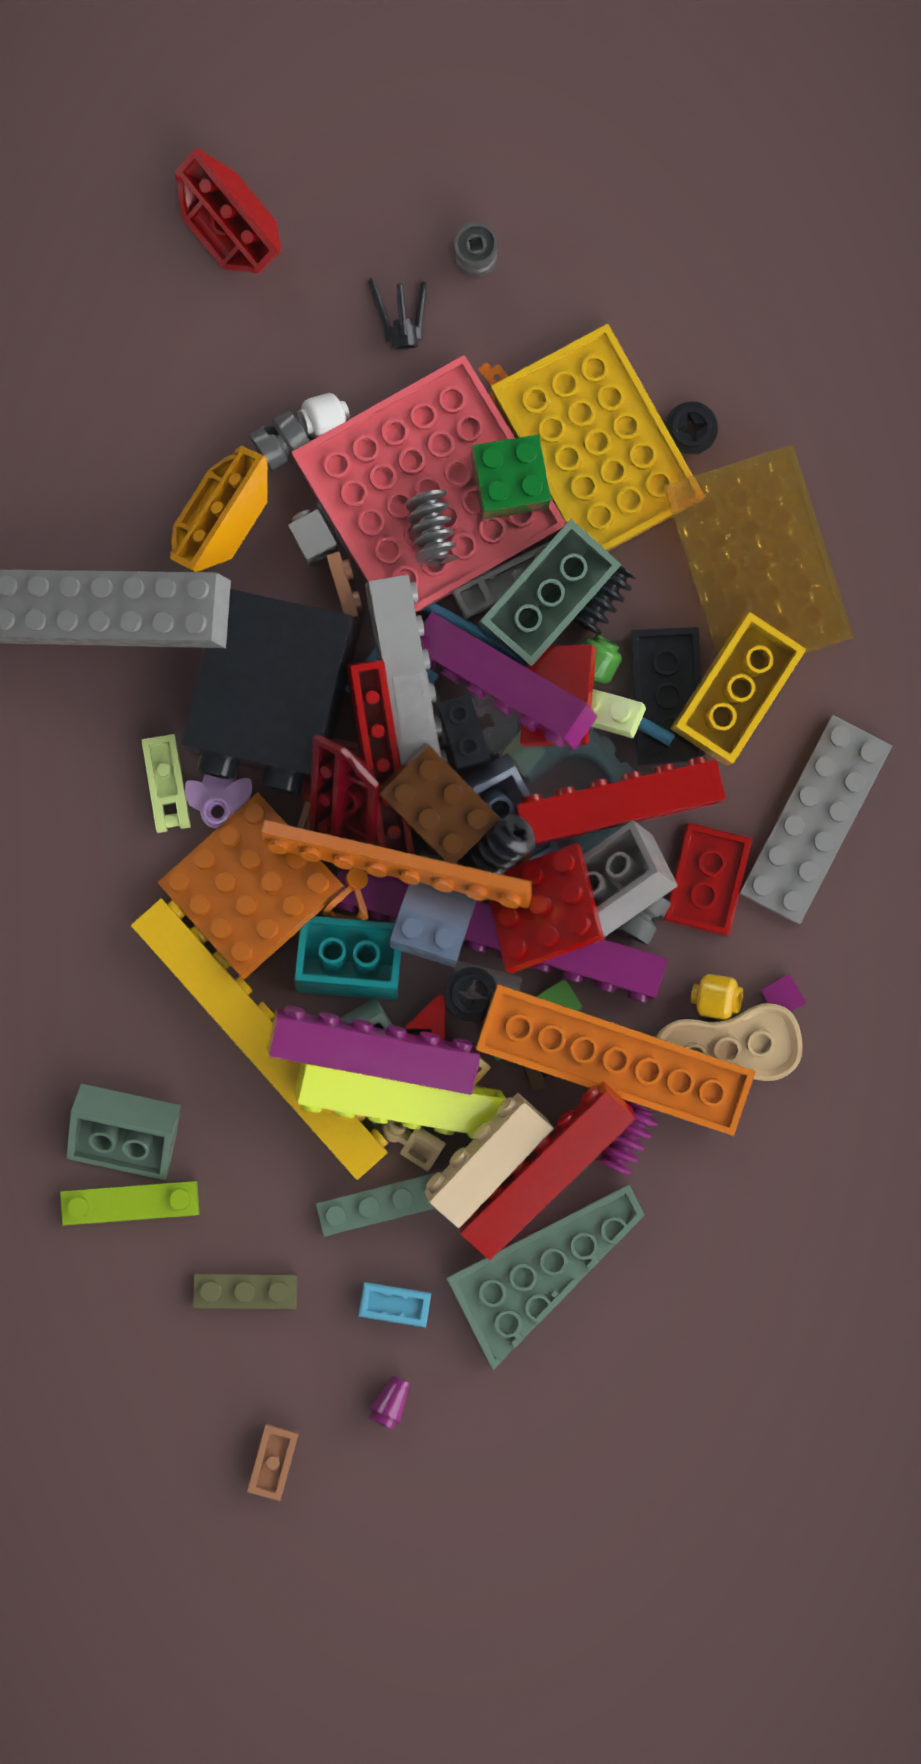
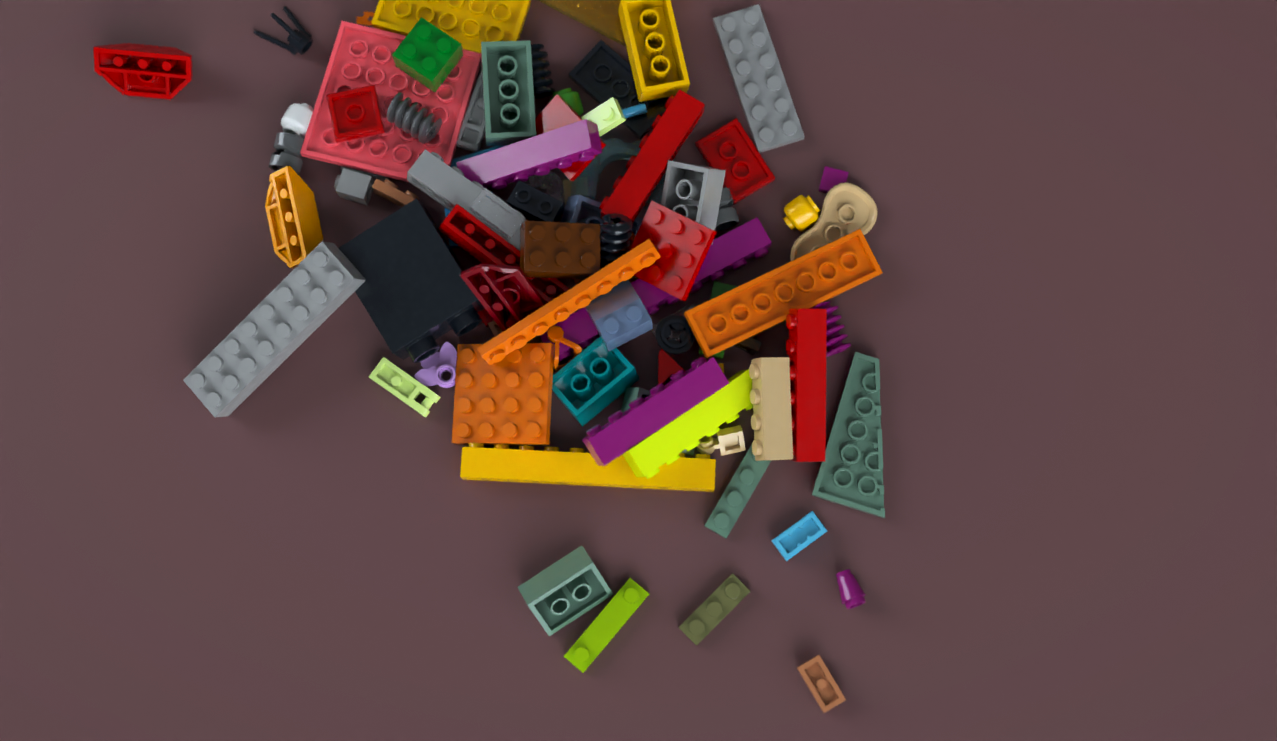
camera: 45 degrees left, 5 degrees down
(381, 466) = (355, 113): none -> red plate

